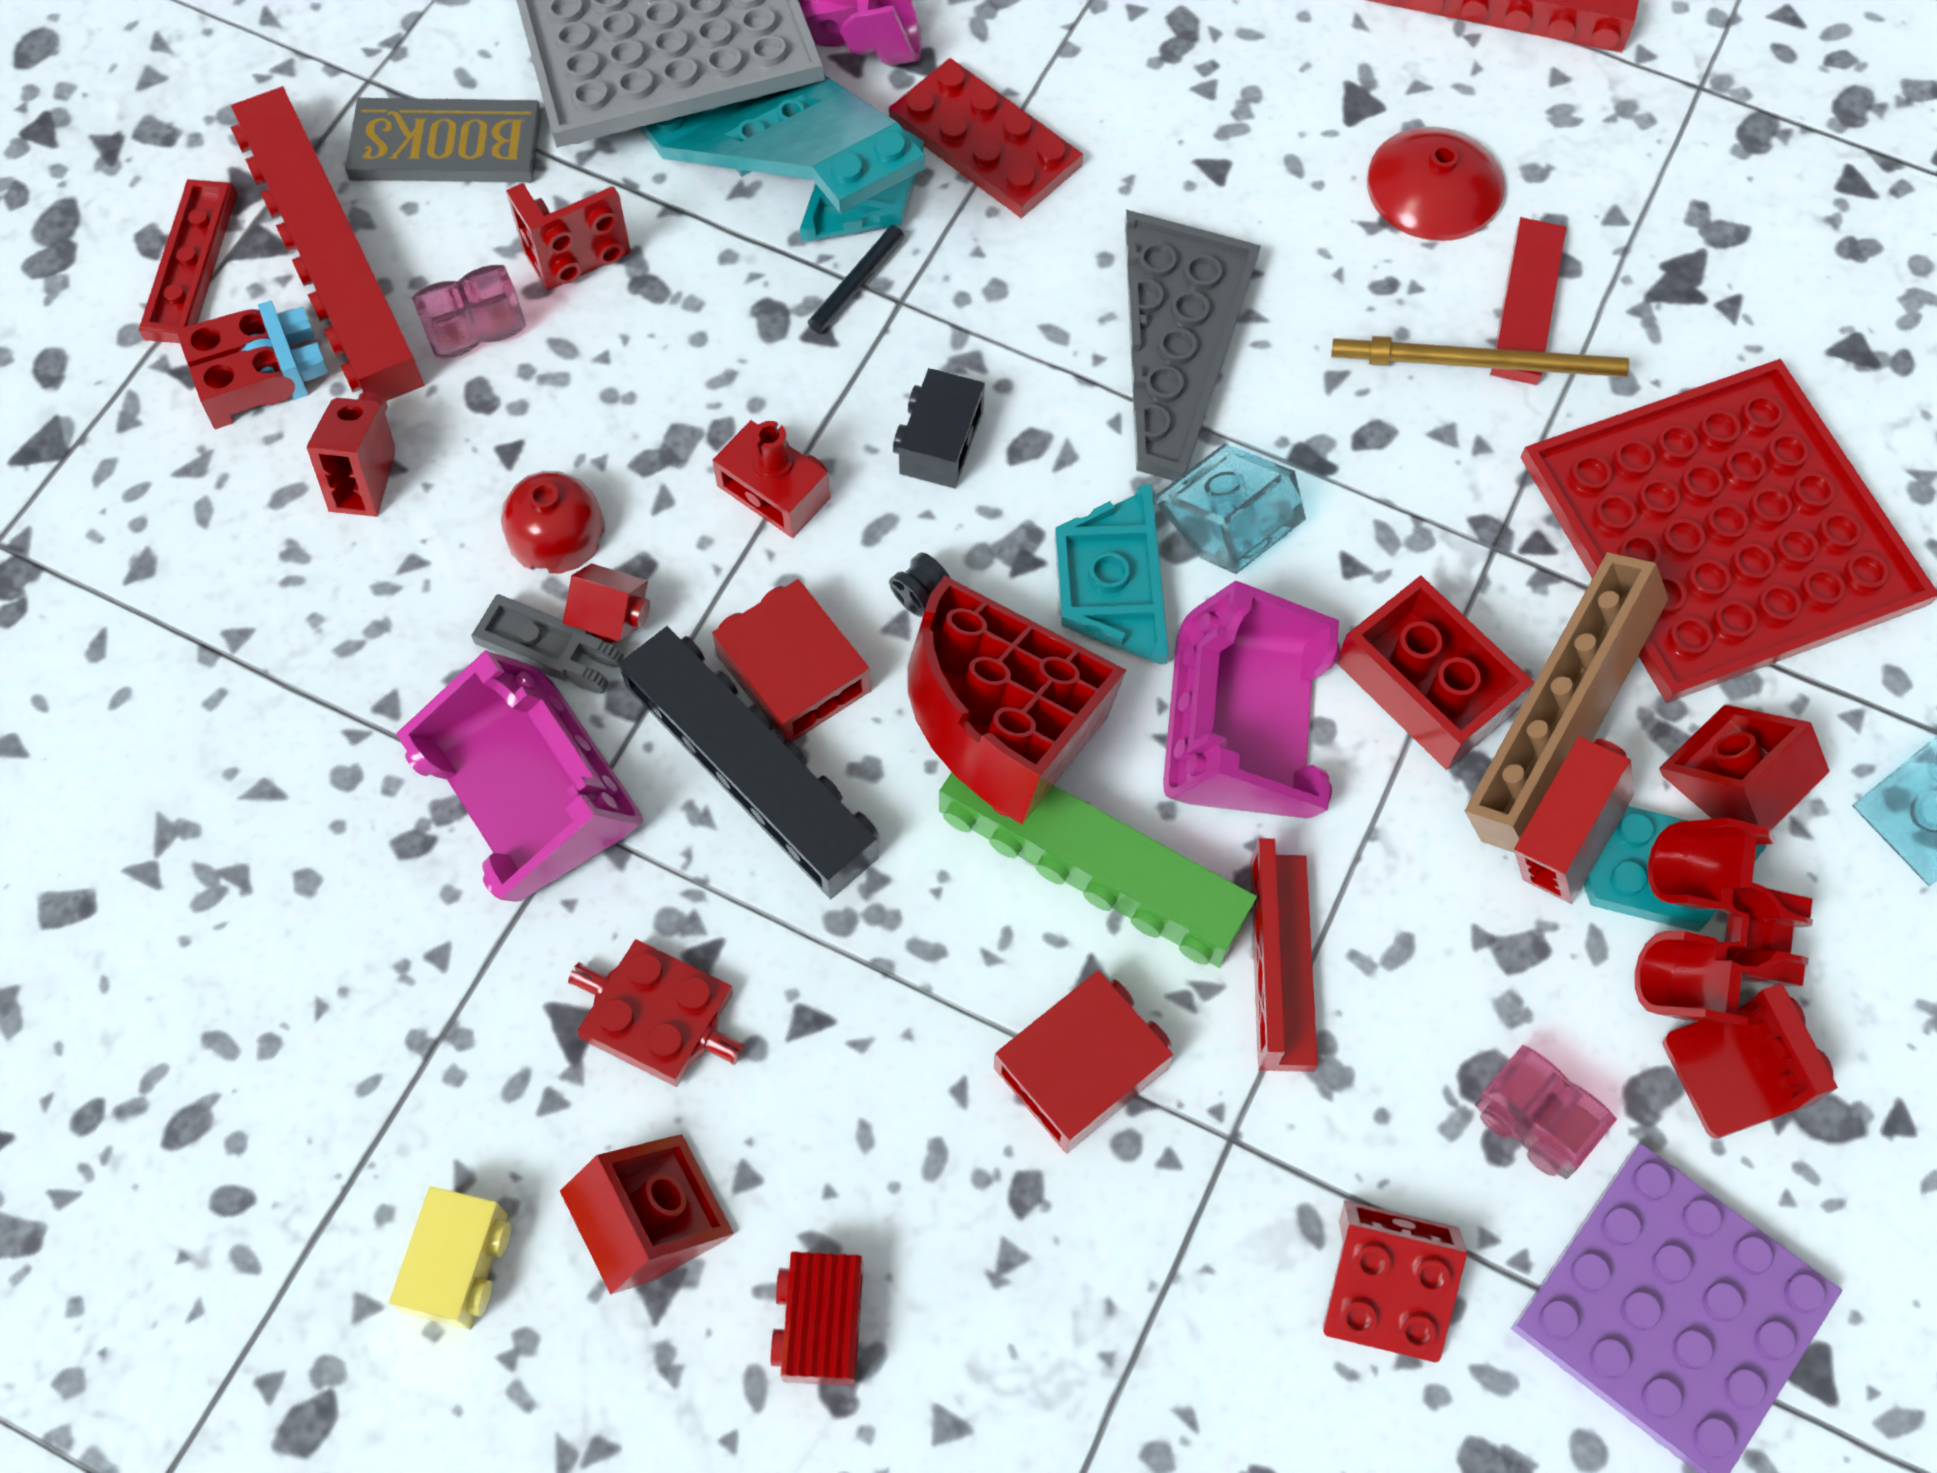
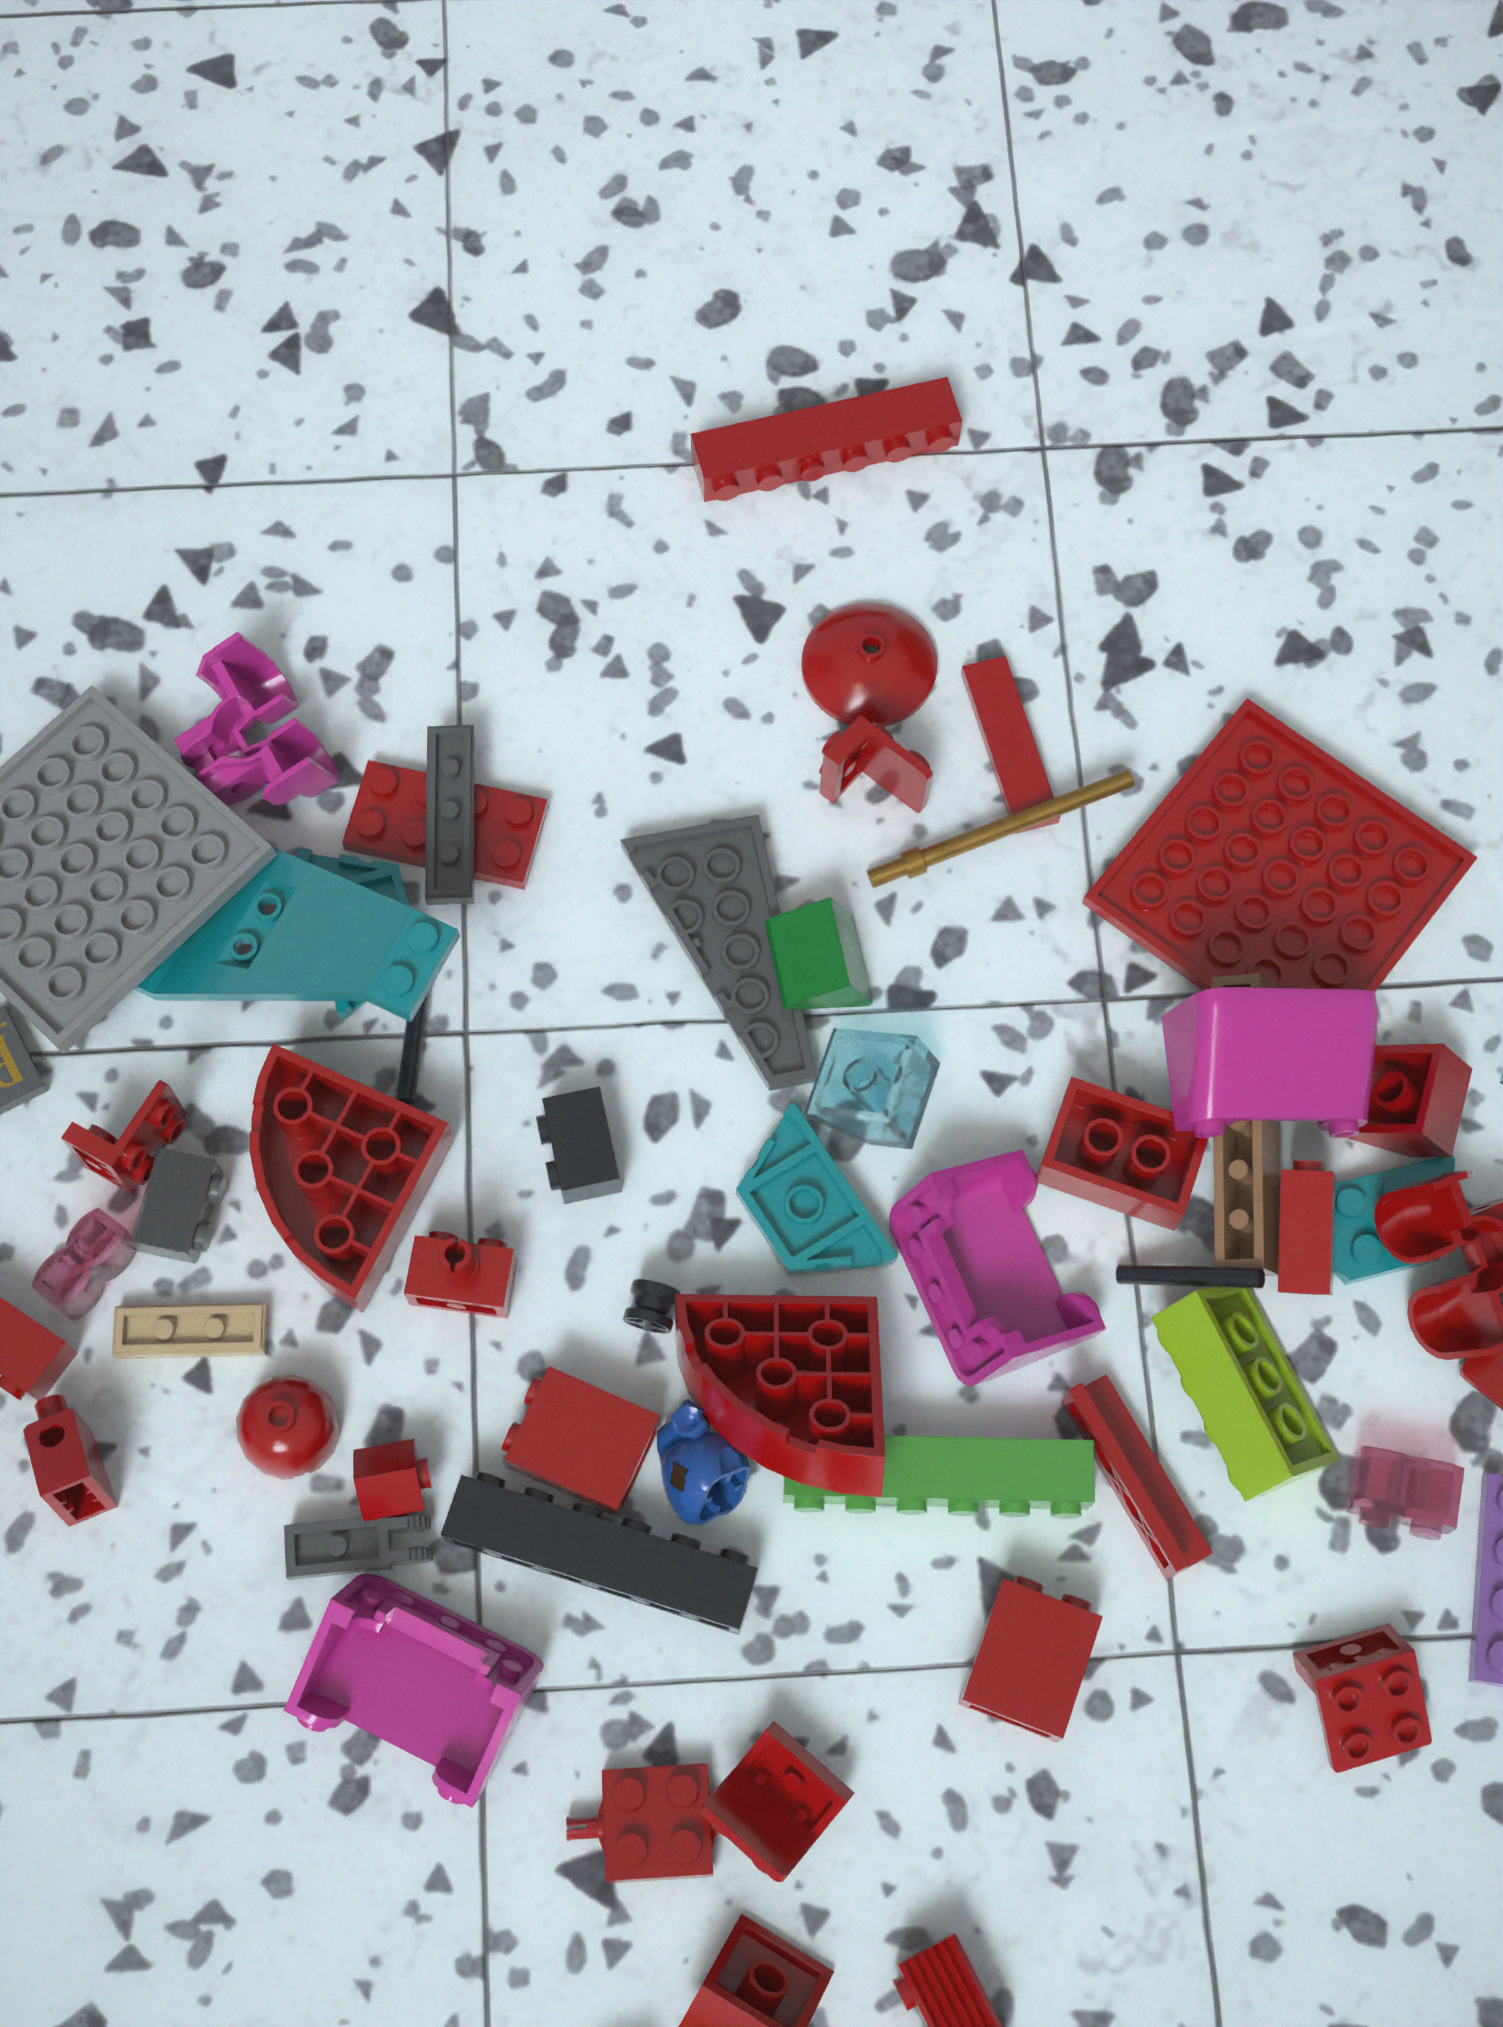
camera: 30 degrees left, 5 degrees up
(524, 412) = (190, 1330): none -> tan tile
(574, 309) = (178, 1206): none -> dark grey brick
(723, 343) = (340, 1170): none -> red brick
(768, 1049) = (776, 1802): none -> red bracket
(879, 732) = (699, 1468): none -> blue piece
(990, 123) = (450, 815): none -> dark grey tile
(1246, 379) = (818, 957): none -> green slope
(1387, 233) = (873, 751): none -> red bracket
(1434, 937) = (1244, 1389): none -> lime slope
(1438, 806) = (1190, 1276): none -> black bar
(1631, 642) = (1271, 1058): none -> dark pink windscreen

